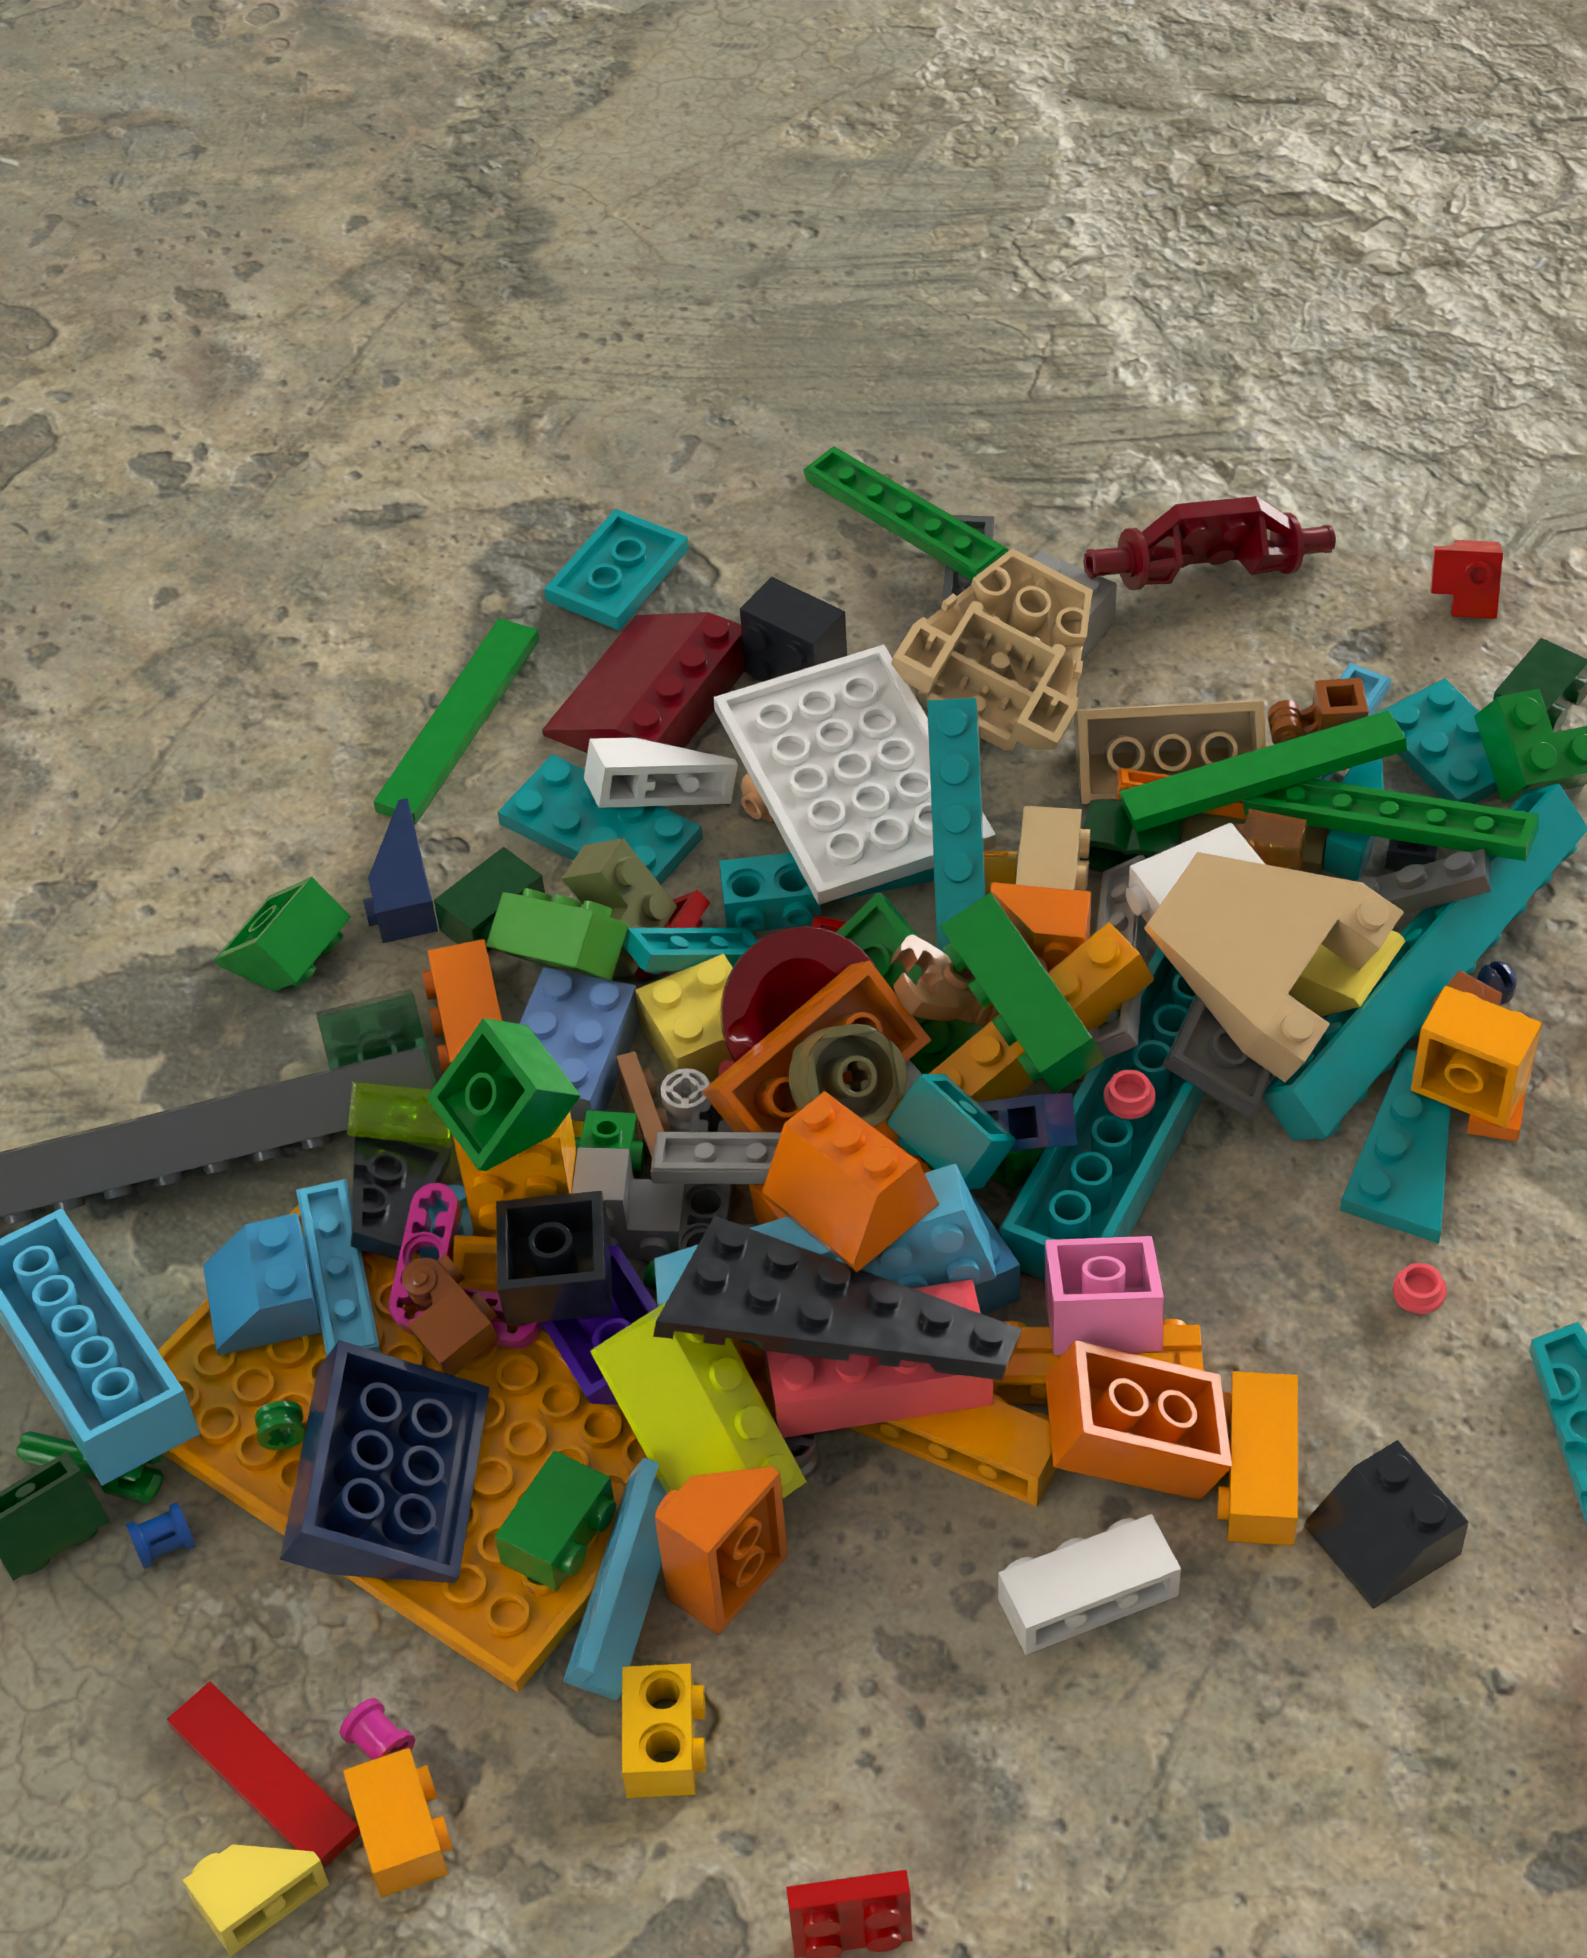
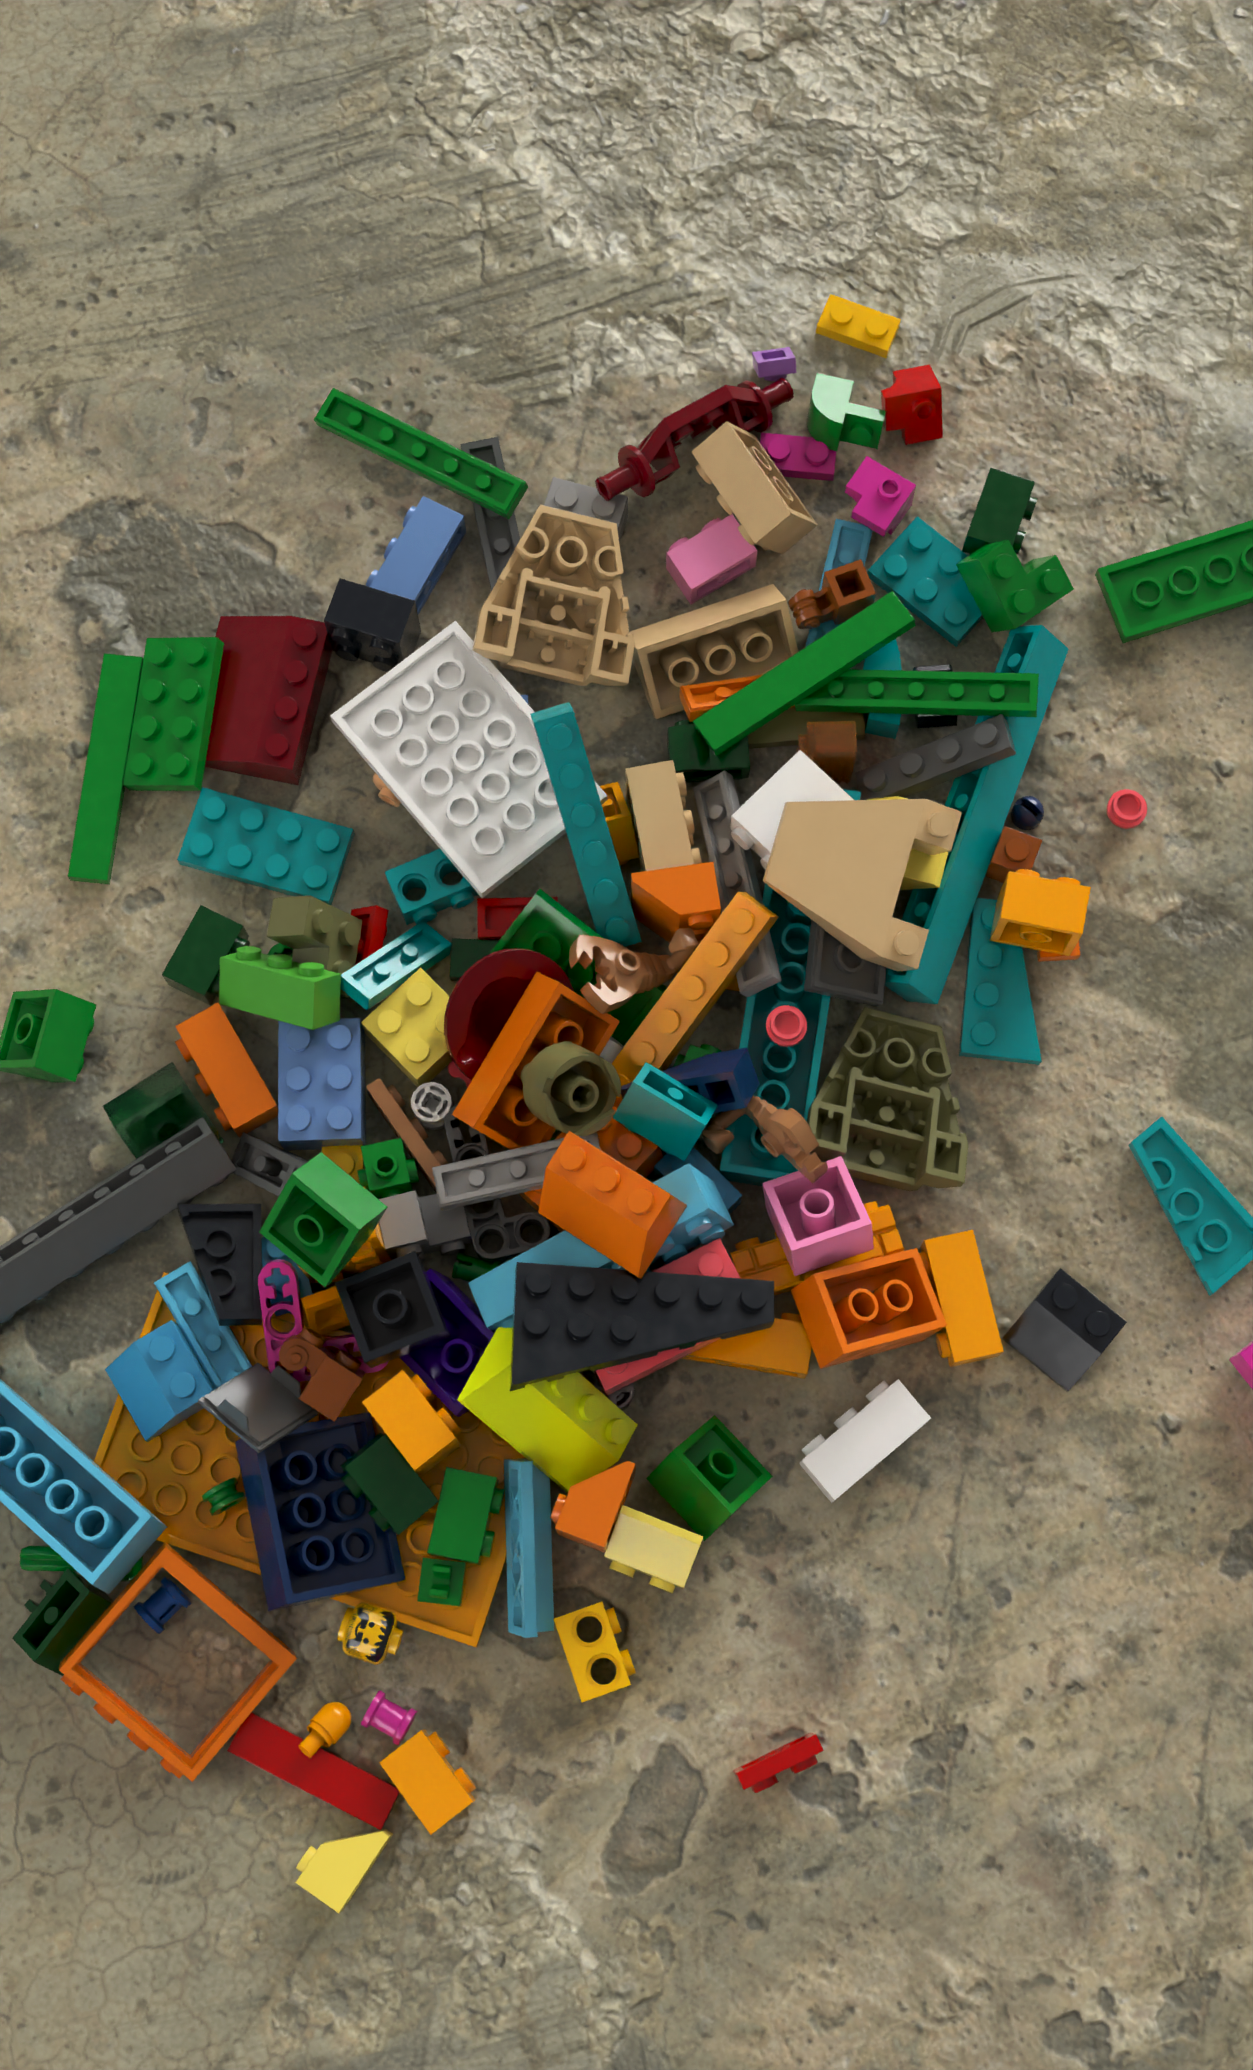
camera: 20 degrees left, 25 degrees up
(104, 1501) = (142, 1731): none -> orange window
(296, 1726) = (326, 1727): none -> light orange cylinder
(361, 1325) = (259, 1405): none -> dark grey piece
(392, 1633) = (369, 1633): none -> yellow head
(394, 1114) = (212, 1192): clear neon green plate -> none
(399, 883) = (121, 955): dark blue slope -> none
(477, 1452) = (388, 1484): none -> dark green brick
(501, 1592) = (442, 1582): none -> green tile
(534, 1391) = (412, 1423): none -> light orange brick
(548, 683) = (173, 714): none -> green plate
(616, 569) = (188, 573): teal plate -> none
(656, 774) = (298, 796): white slope -> none
(778, 1622) = (652, 1548): none -> light yellow slope
(875, 1572) = (709, 1477): none -> green slope
(880, 595) = (420, 552): none -> medium blue brick
(1022, 993) = (687, 978): green brick -> none
(1084, 1181) = (783, 1133): none -> medium nougat animal
(1194, 667) = (710, 558): none -> bright pink brick
(1232, 1225) = (891, 1106): none -> olive wedge
(1260, 605) = (752, 489): none -> tan brick
(1322, 514) = (774, 363): none -> medium lavender plate
(1323, 603) = (800, 456): none -> dark pink plate
(1382, 570) = (835, 419): none -> green brick
(1406, 647) = (880, 496): none -> dark pink brick
(1419, 1288) = (1037, 1115): coral plate -> none
(1429, 505) = (858, 326): none -> yellow plate

